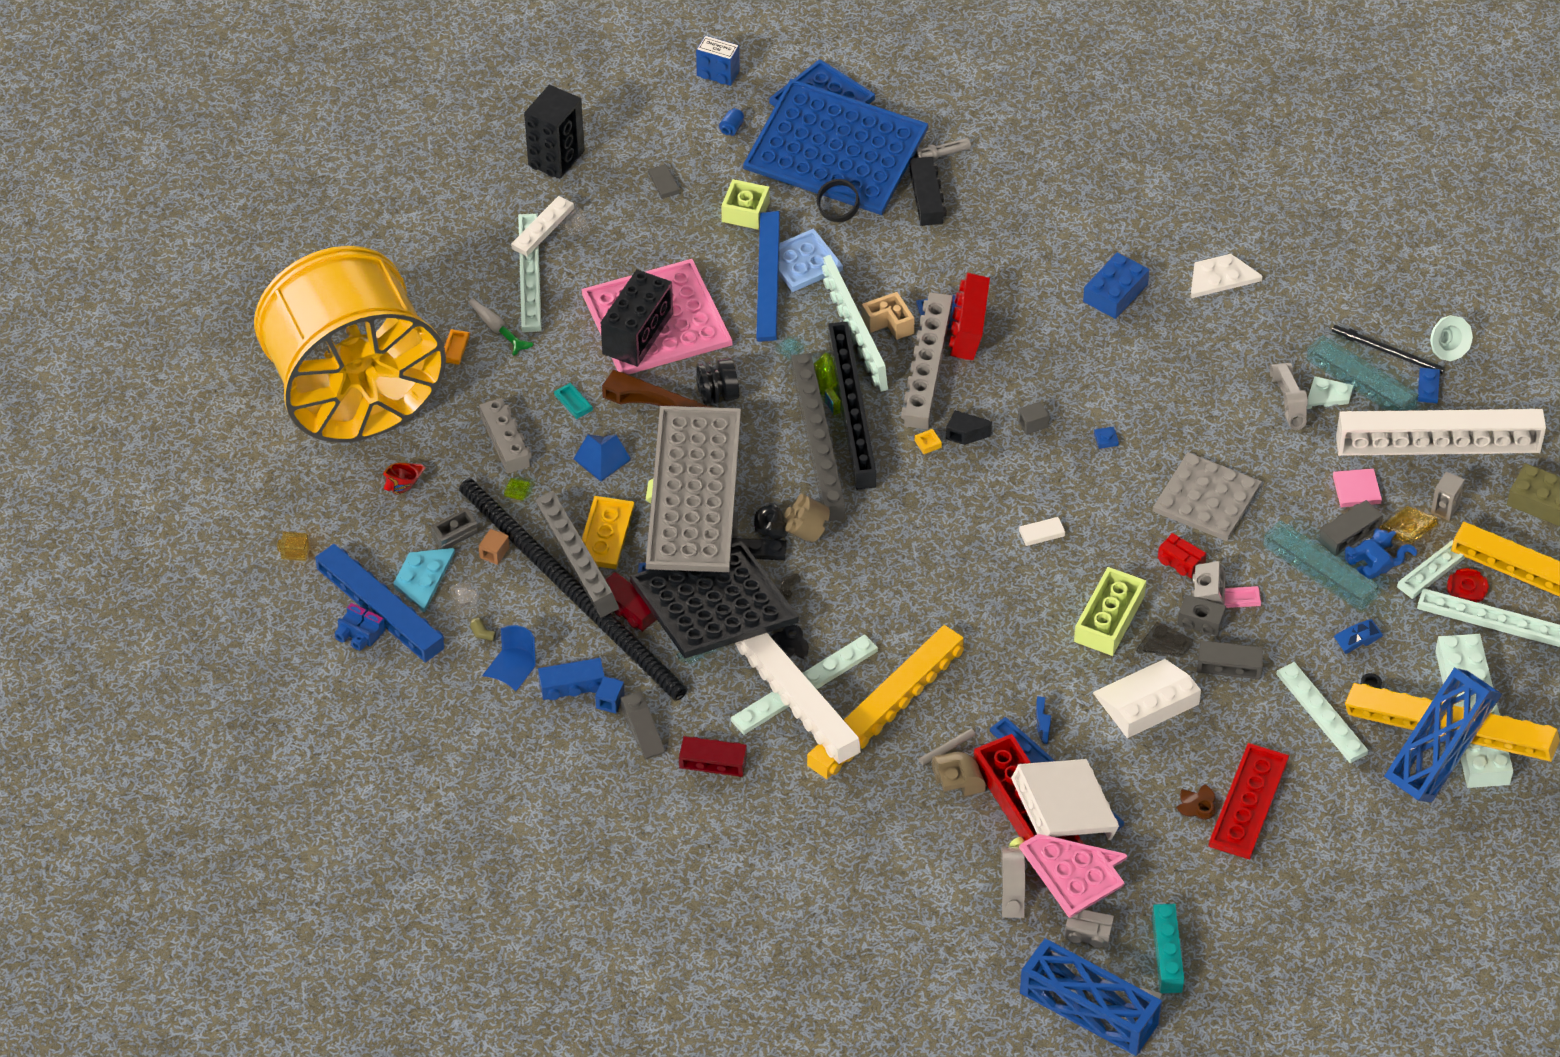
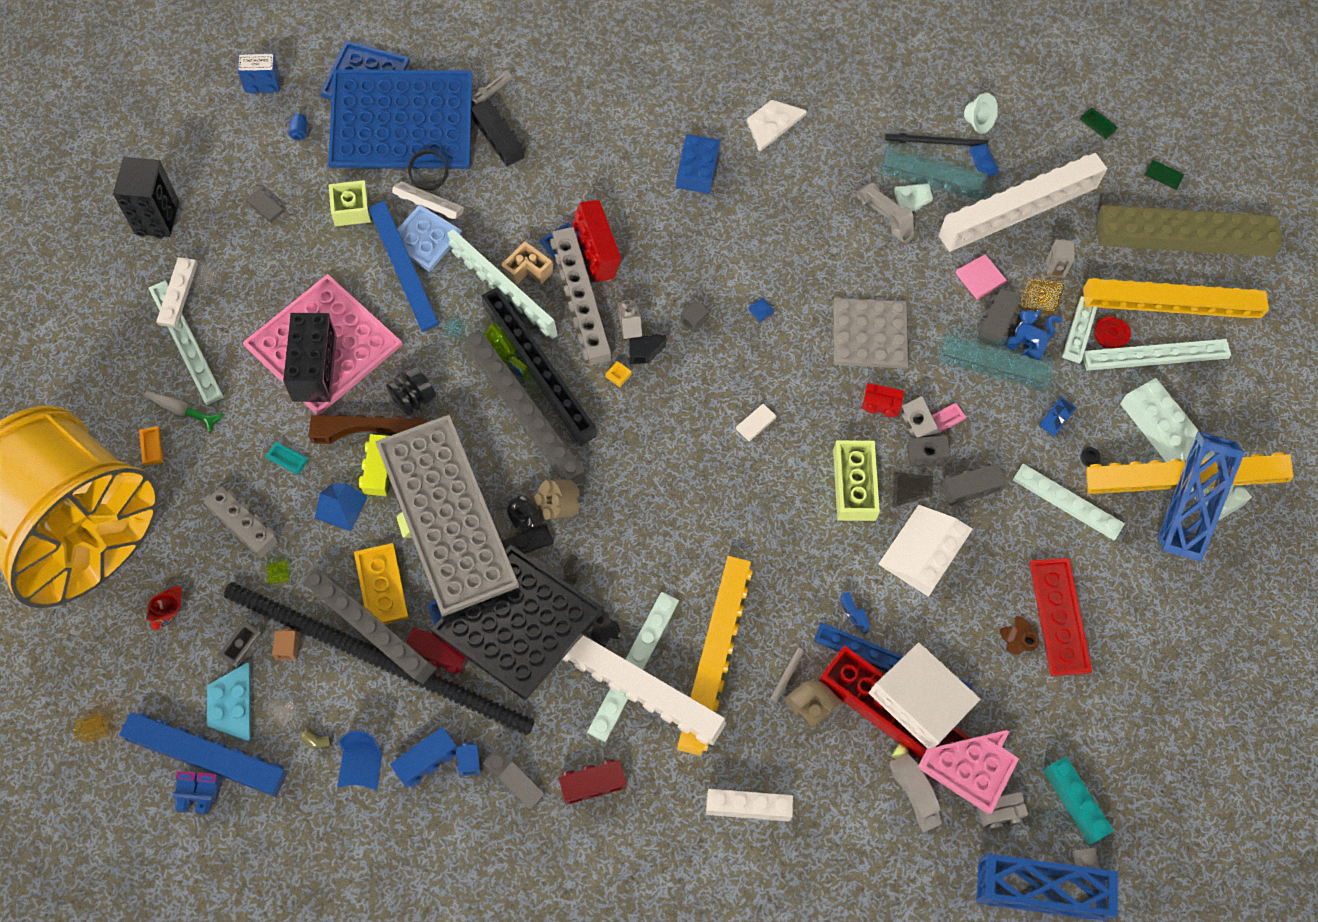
camera: 30 degrees left, 15 degrees up
(643, 444) = (375, 477): none -> neon yellow brick
(826, 229) = (428, 200): none -> white plate
(847, 828) = (749, 805): none -> white brick
(963, 394) = (629, 319): none -> light grey brick

